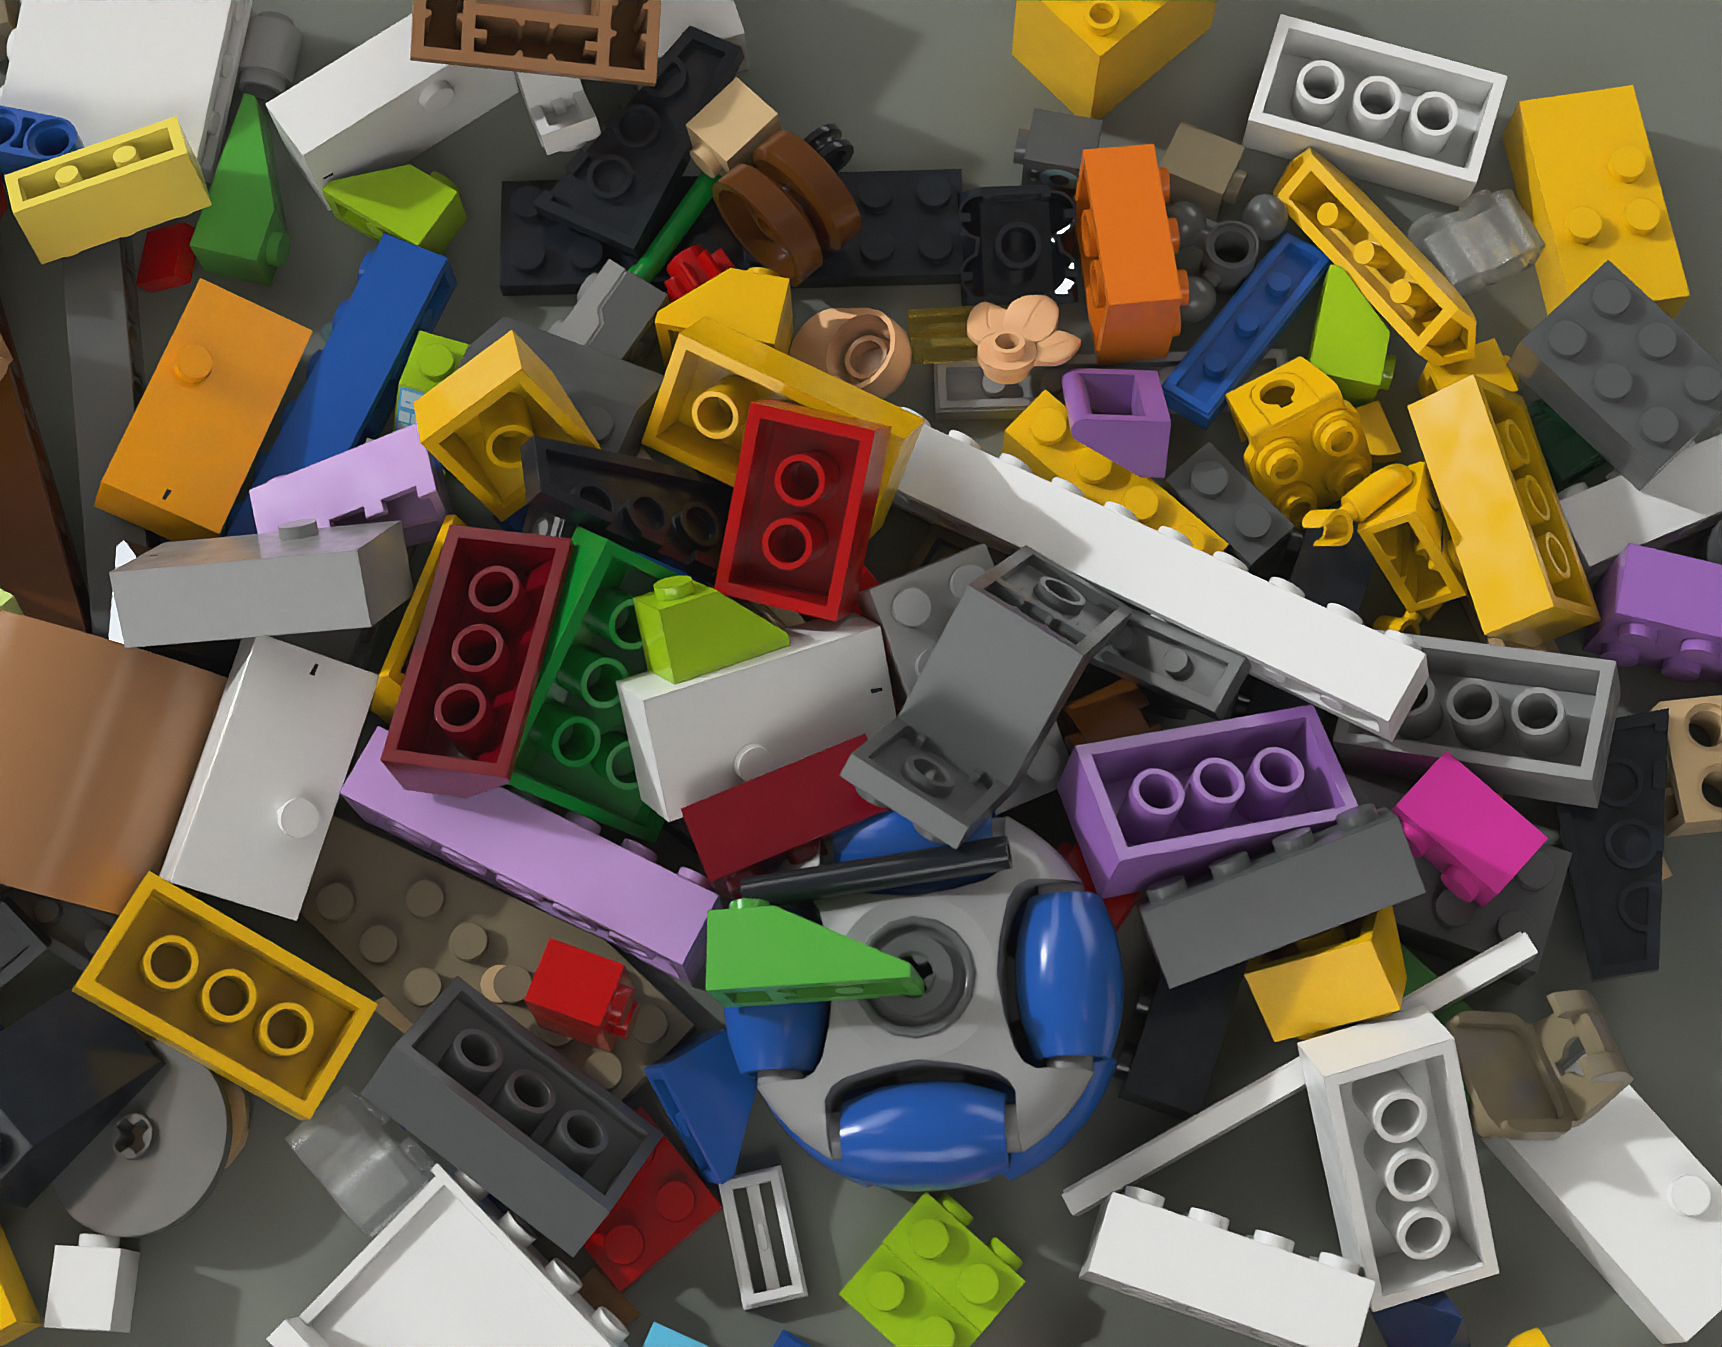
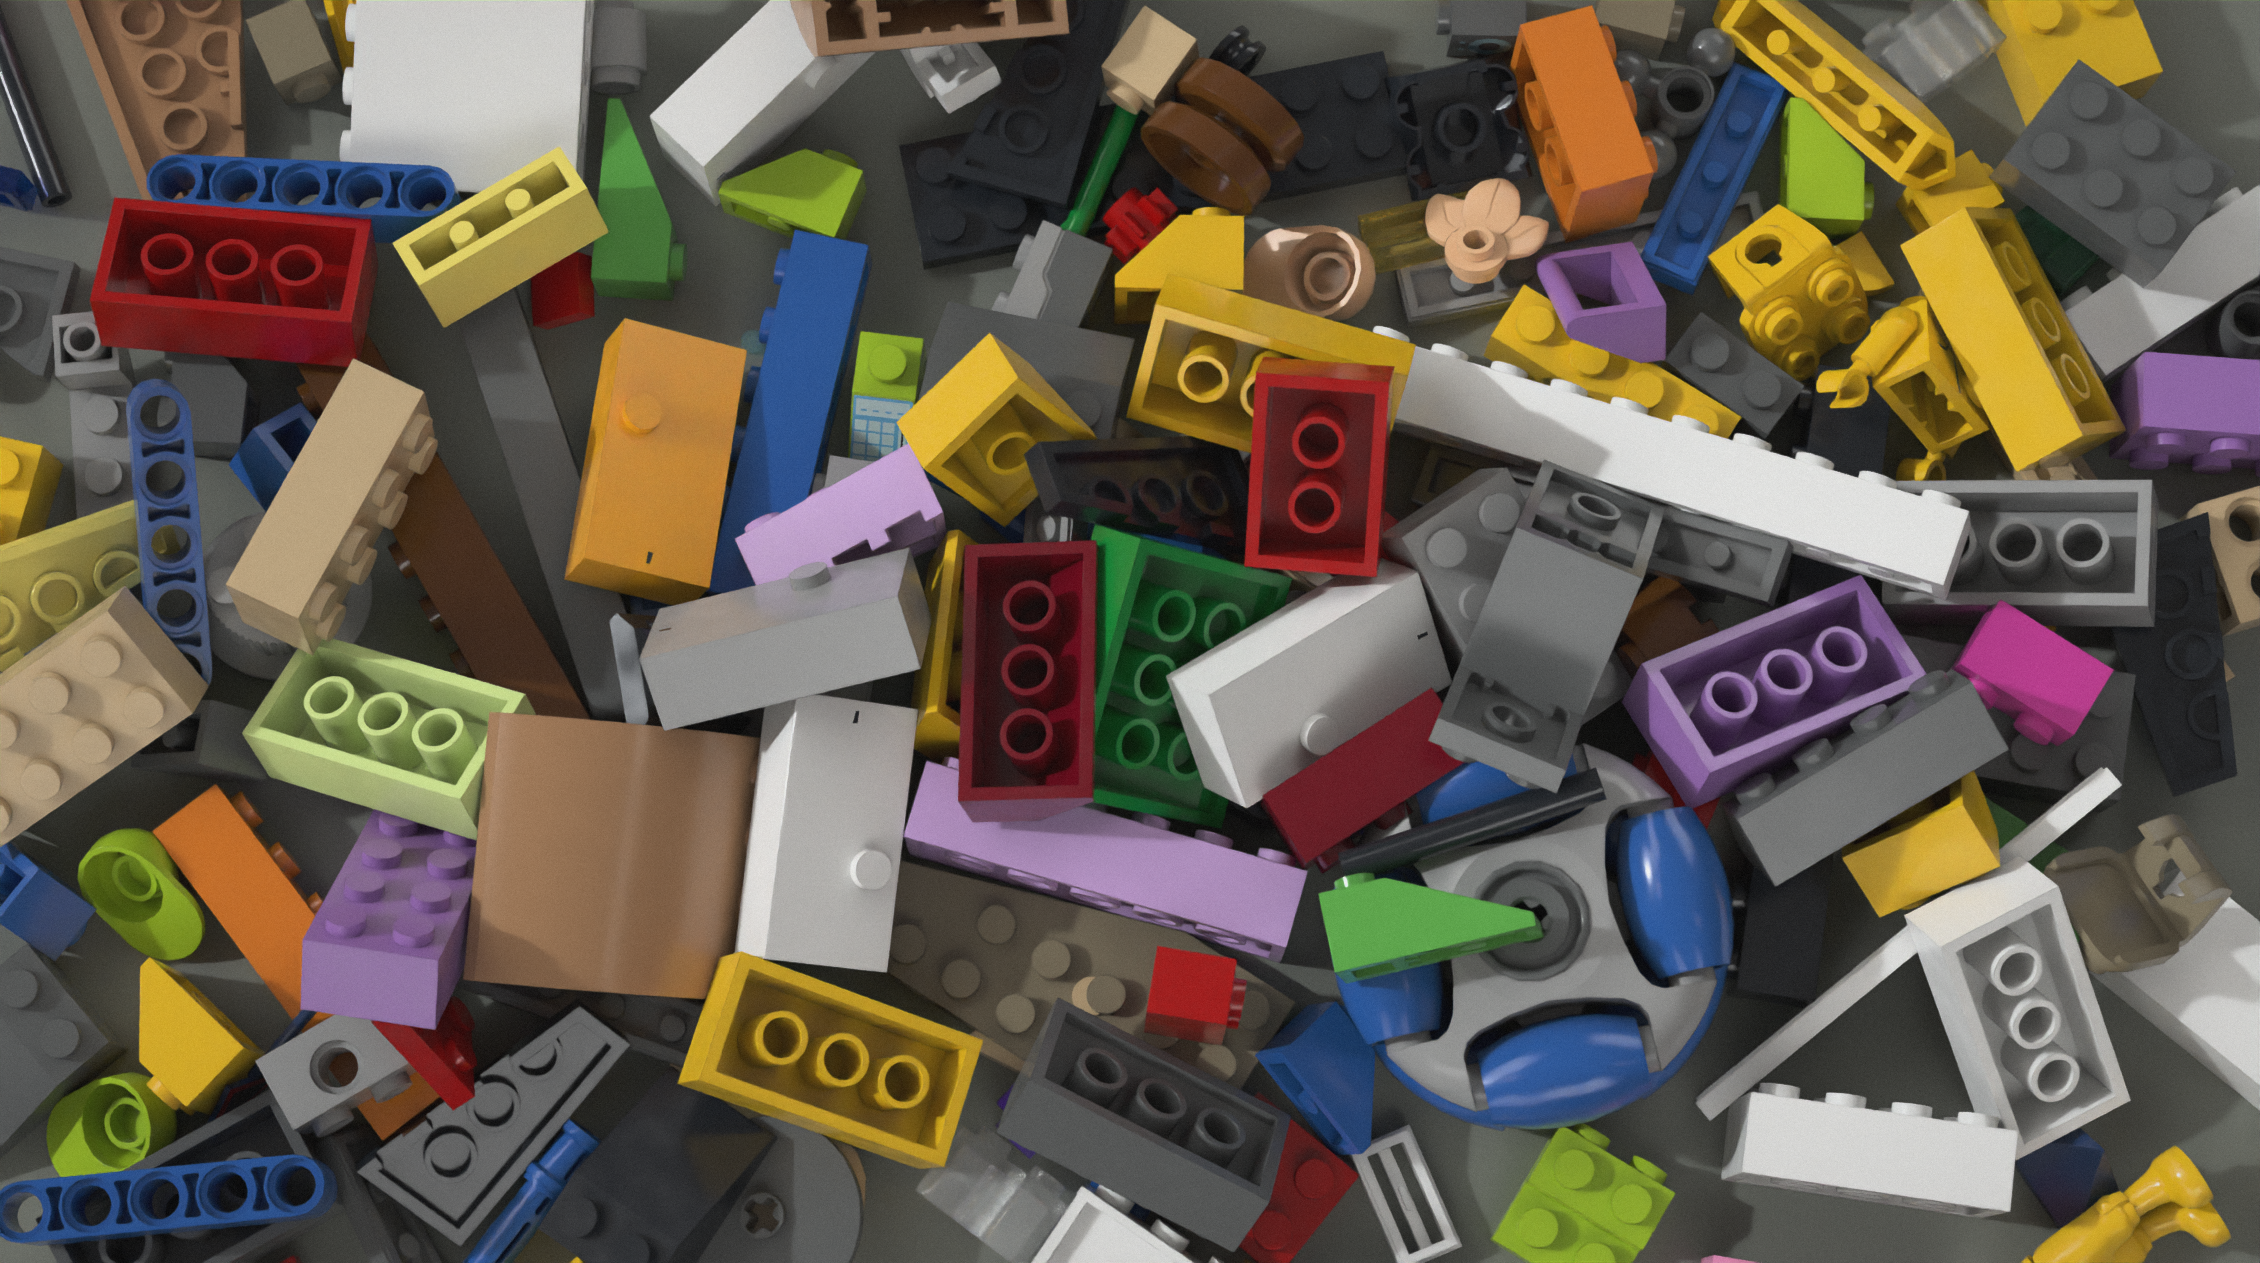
camera: 15 degrees left, 5 degrees up
(699, 630) = (1241, 611): lime slope -> none

